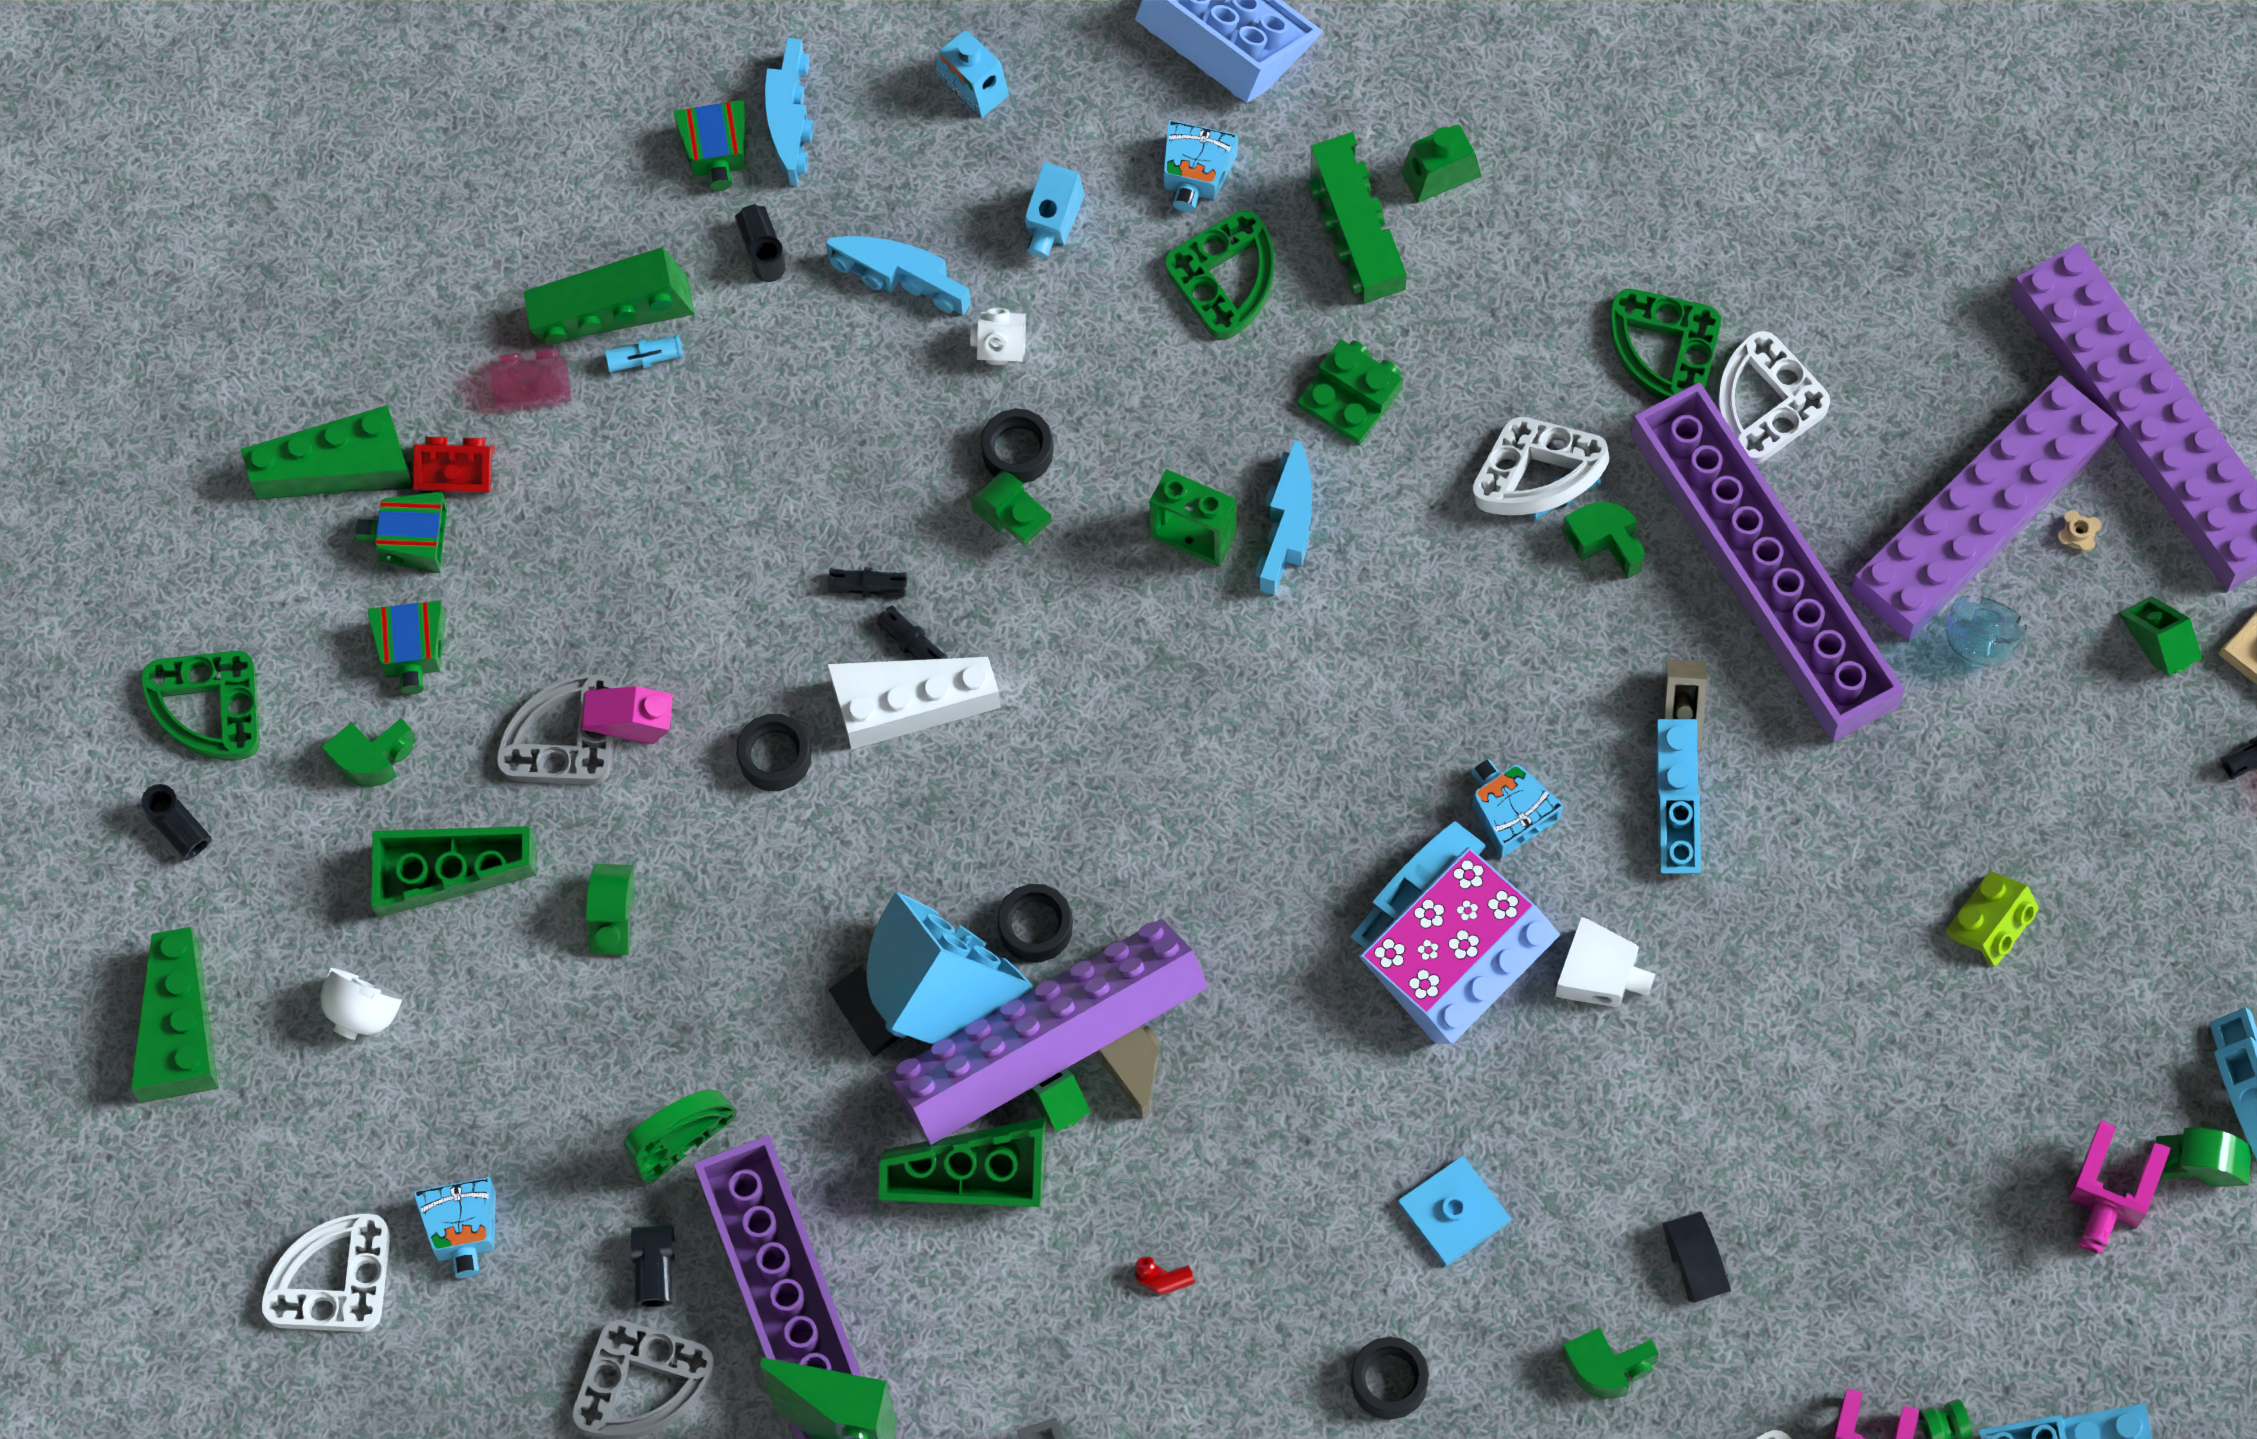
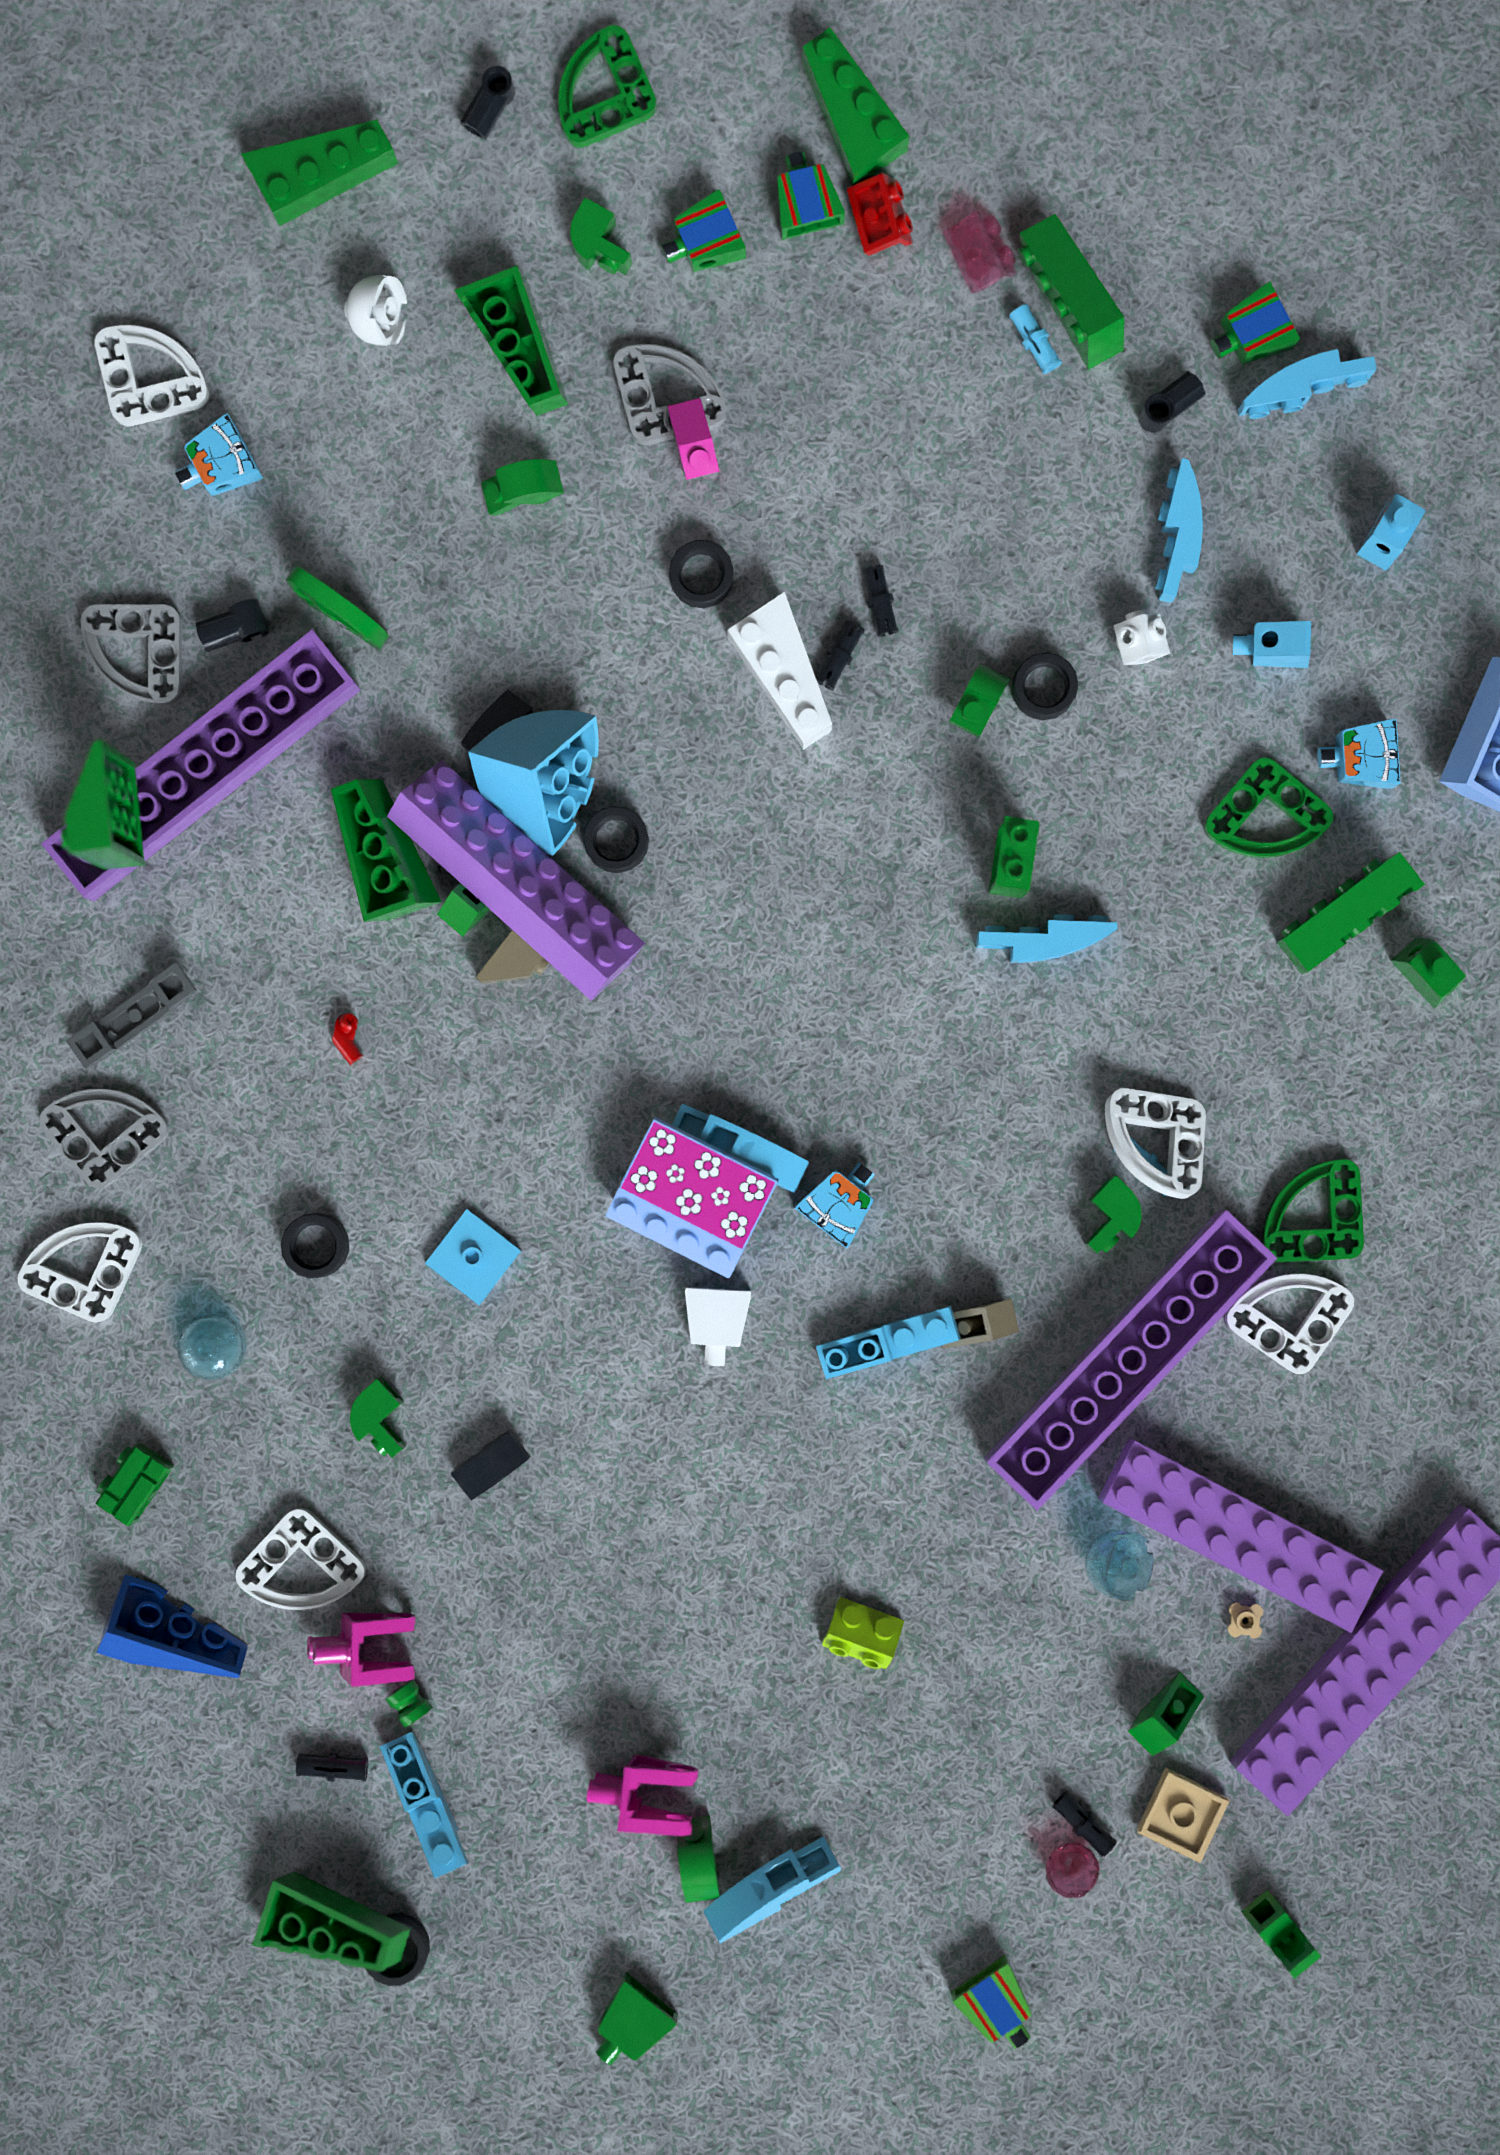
camera: 75 degrees right, 20 degrees up
(1351, 390) = (1186, 956): green plate -> none

